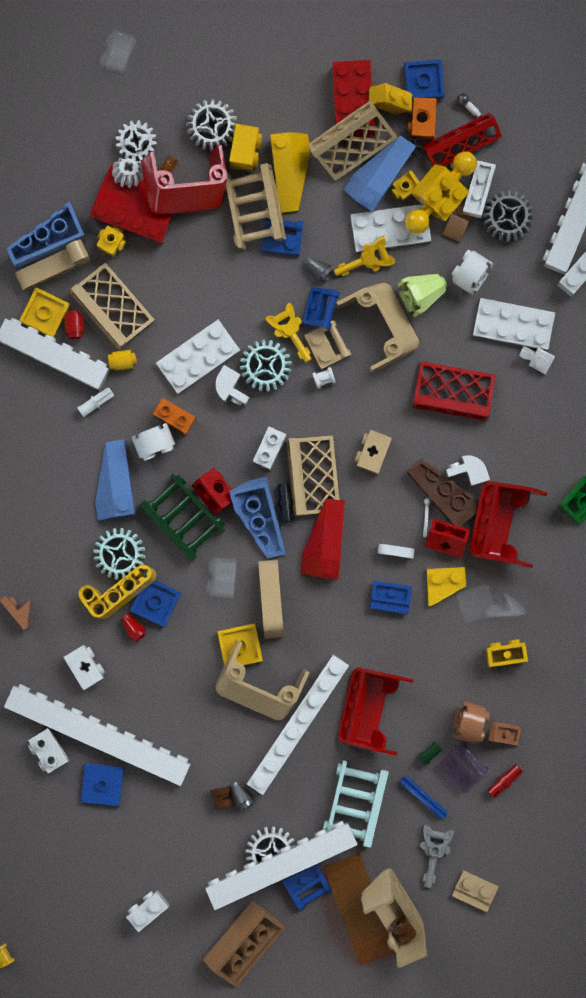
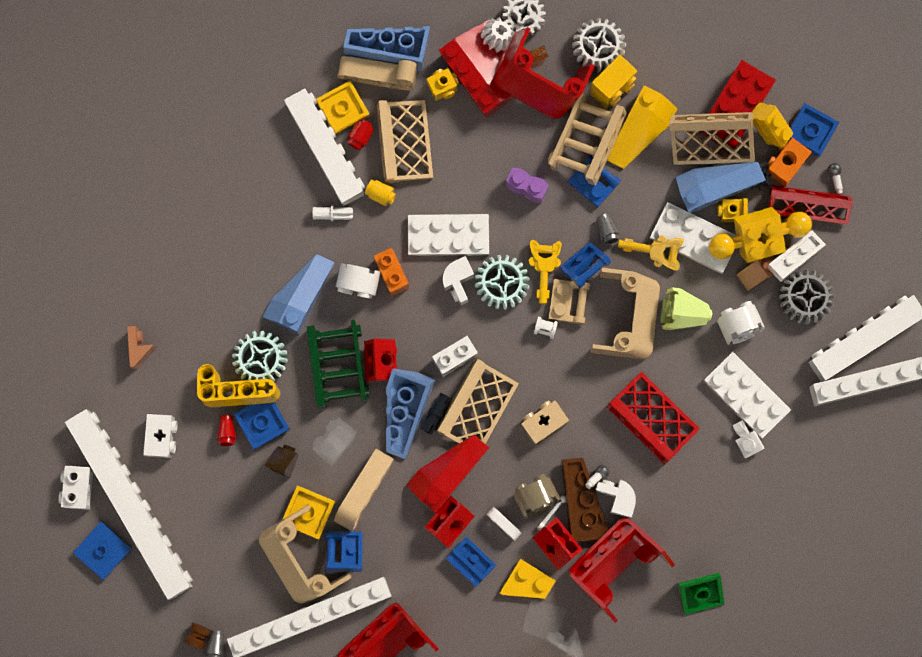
camera: 35 degrees right, 5 degrees down
(193, 619) = (282, 460): none -> dark brown slope
(227, 277) = (522, 184): none -> medium lavender brick
(293, 652) = (350, 552): none -> blue plate
(353, 578) = (449, 521): none -> red brick
(407, 513) = (536, 496): none -> dark tan brick
(442, 460) = (600, 473): none -> piece

